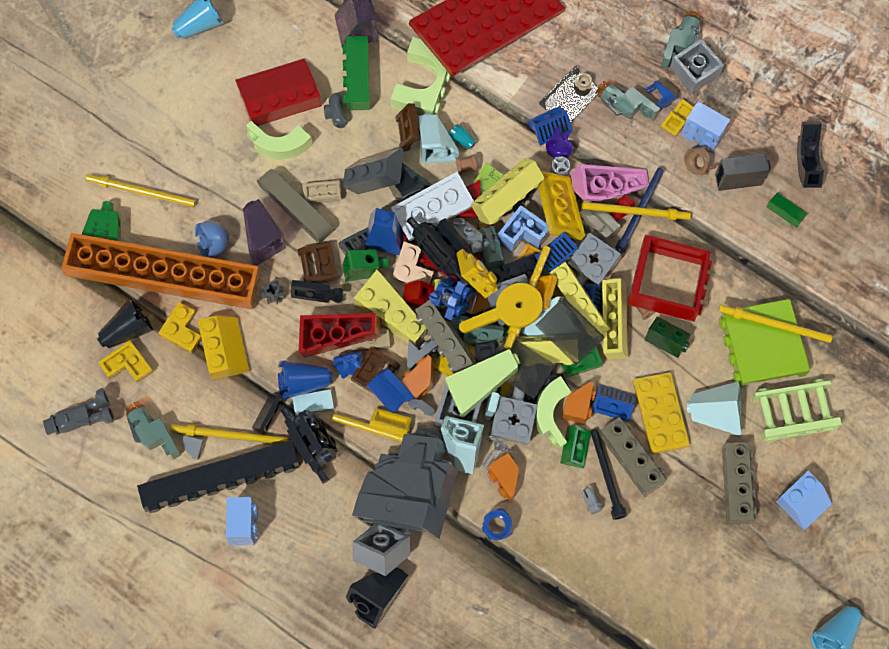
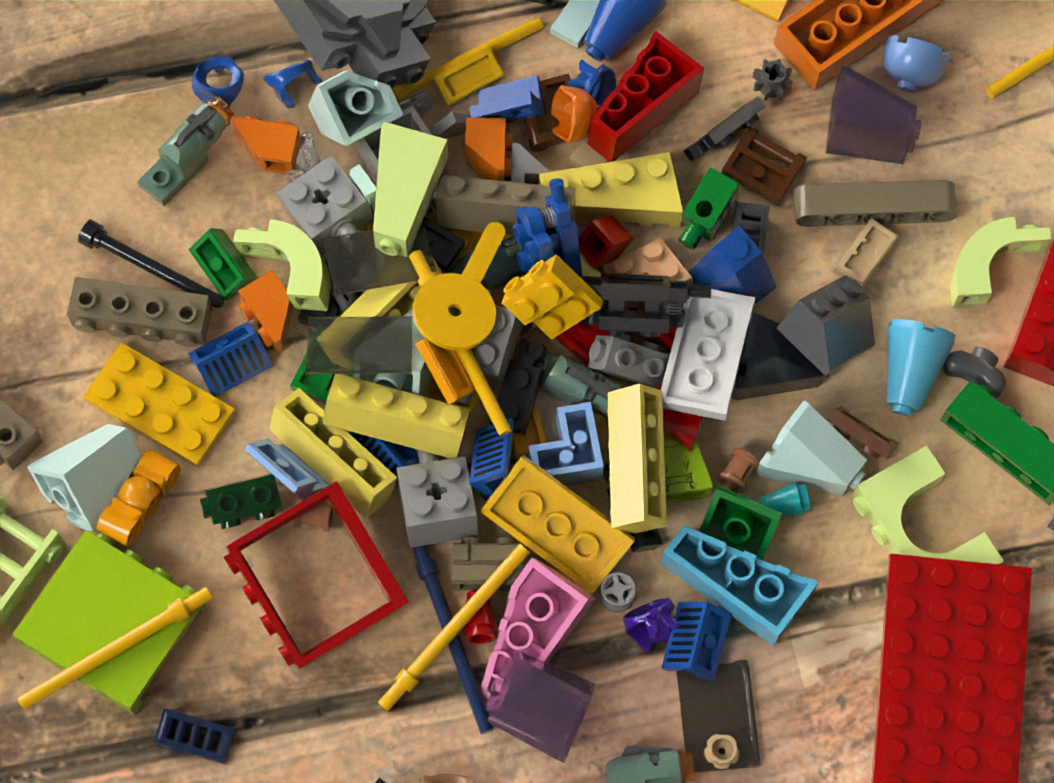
camera: 135 degrees right, 0 degrees up
(356, 132) = (914, 363): none -> medium azure cone
(374, 349) = (574, 111): none -> orange hair
(471, 503) = (281, 78): none -> blue piece
(491, 144) = (740, 522): none -> green slope
(512, 117) = (738, 582): none -> medium azure wedge
(543, 508) = (186, 150): none -> sand green plate
(591, 501) = (138, 216): light grey pin -> none
(635, 149) = (540, 704): none -> clear purple slope
(640, 326) = (286, 468): none -> light blue slope
(707, 378) = (138, 498): none -> light orange piece
(774, 287) = (169, 716): none -> dark blue slope

